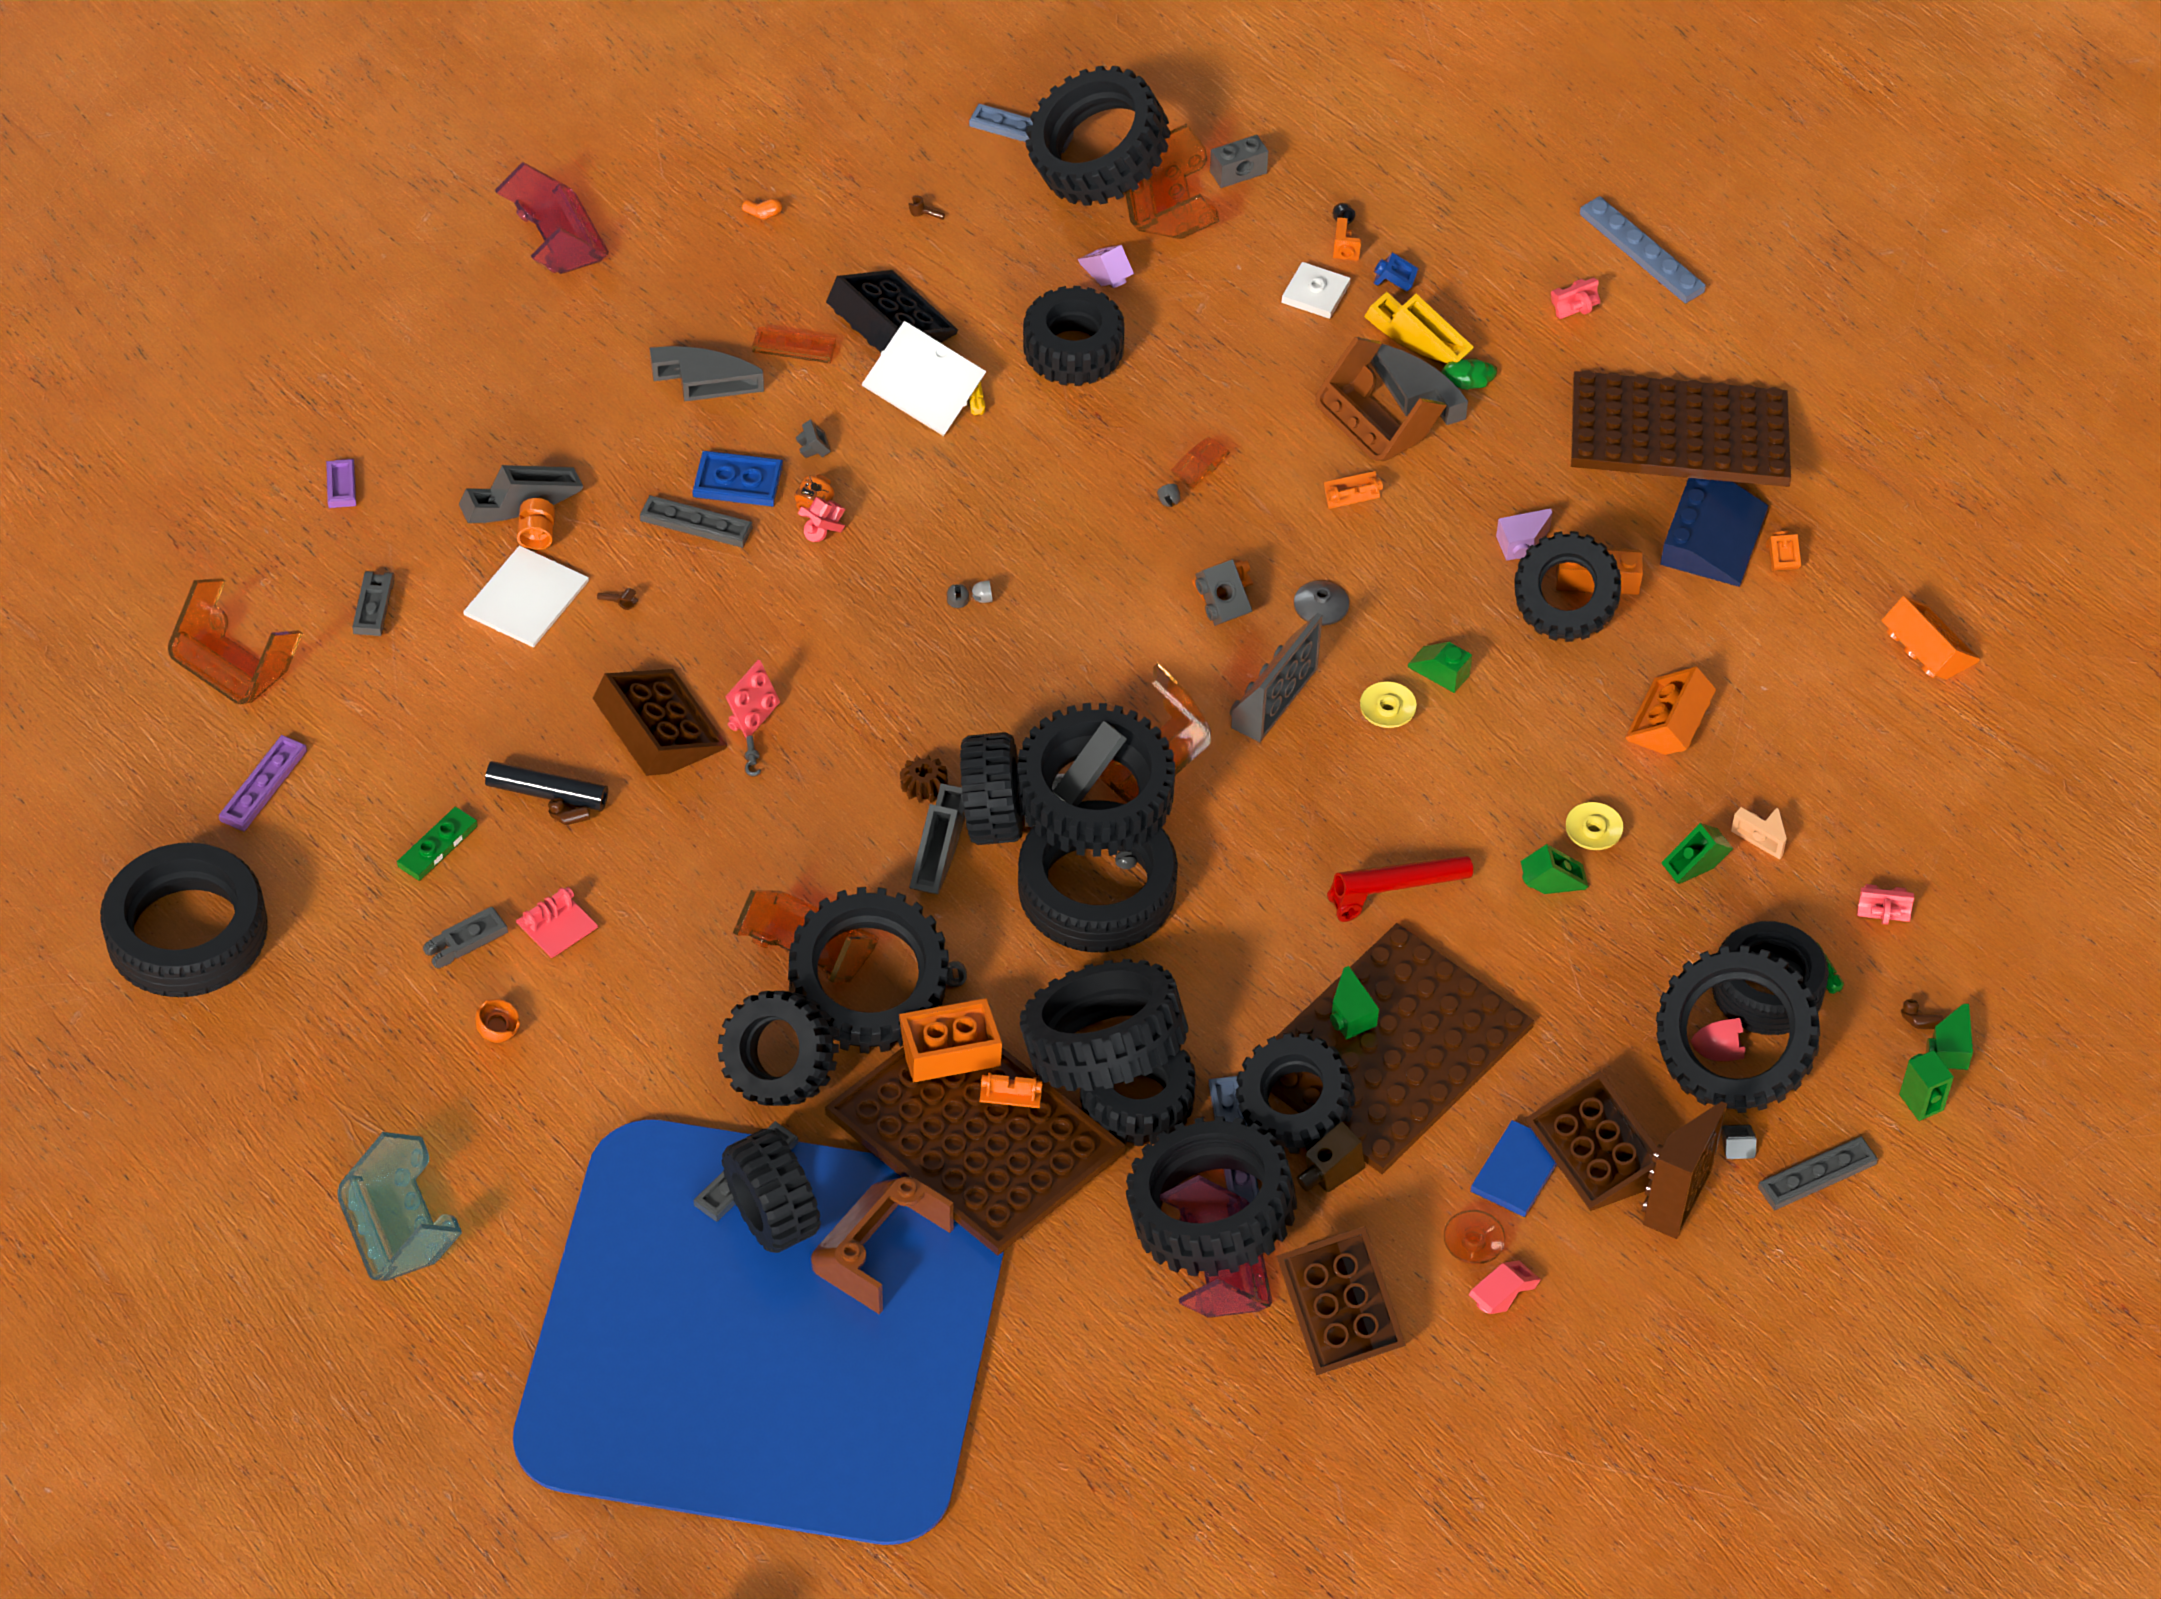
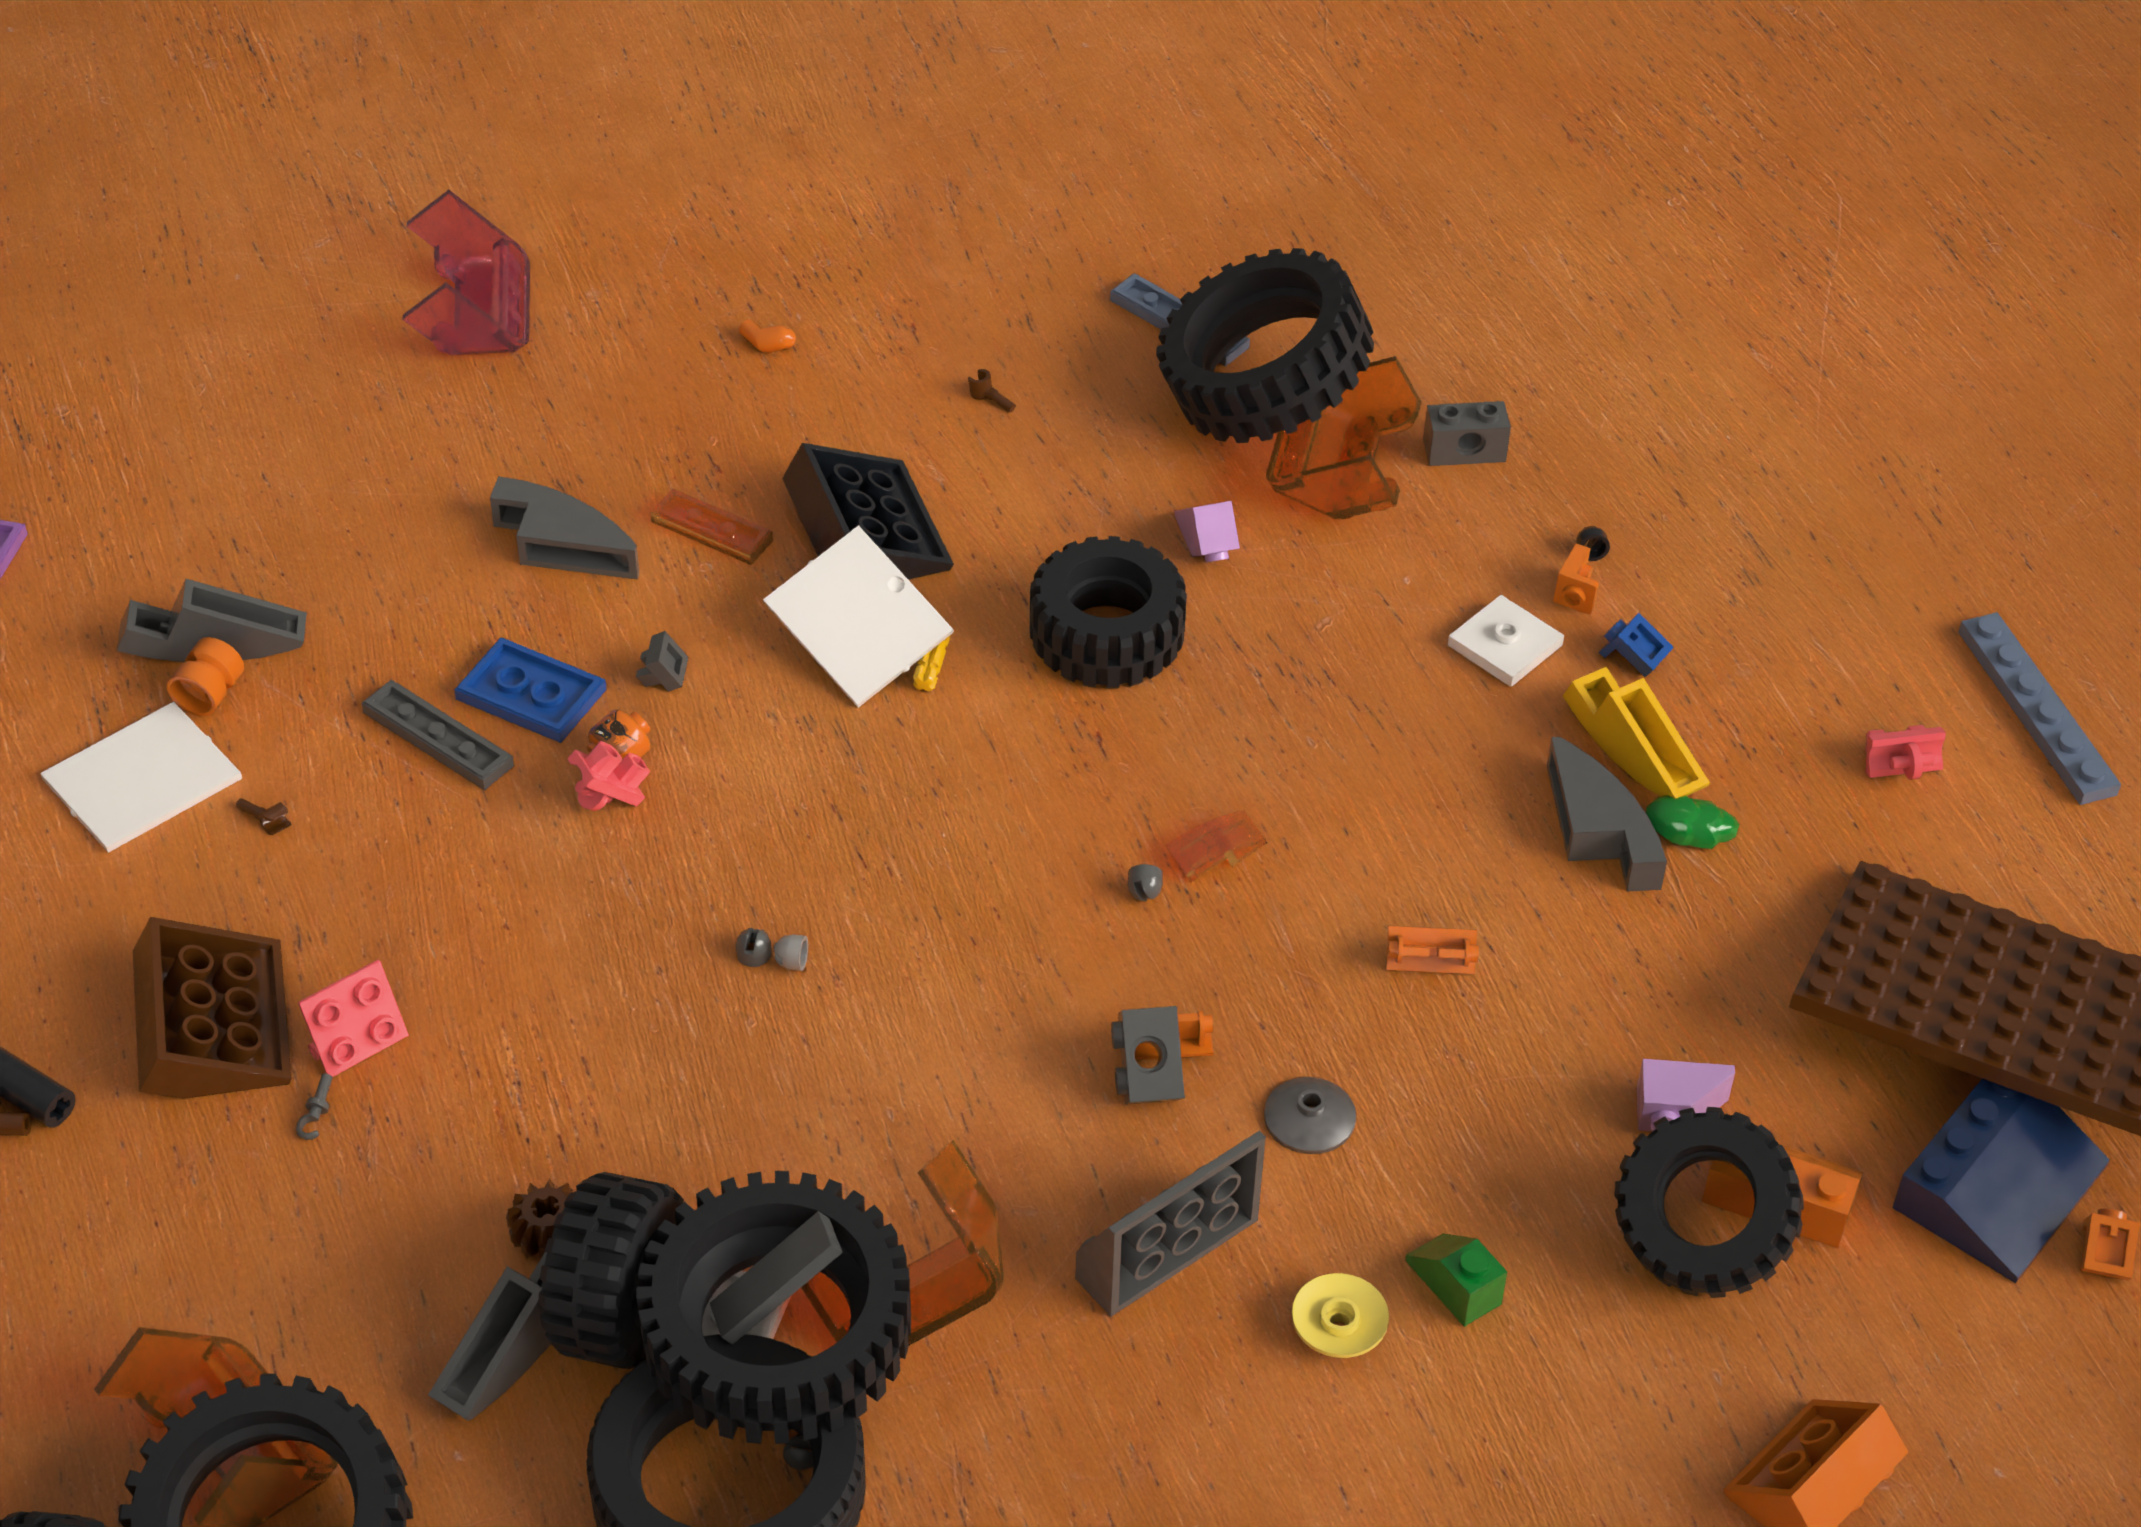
camera: 20 degrees right, 5 degrees down
(1347, 404) = (1486, 828): dark orange windscreen -> none

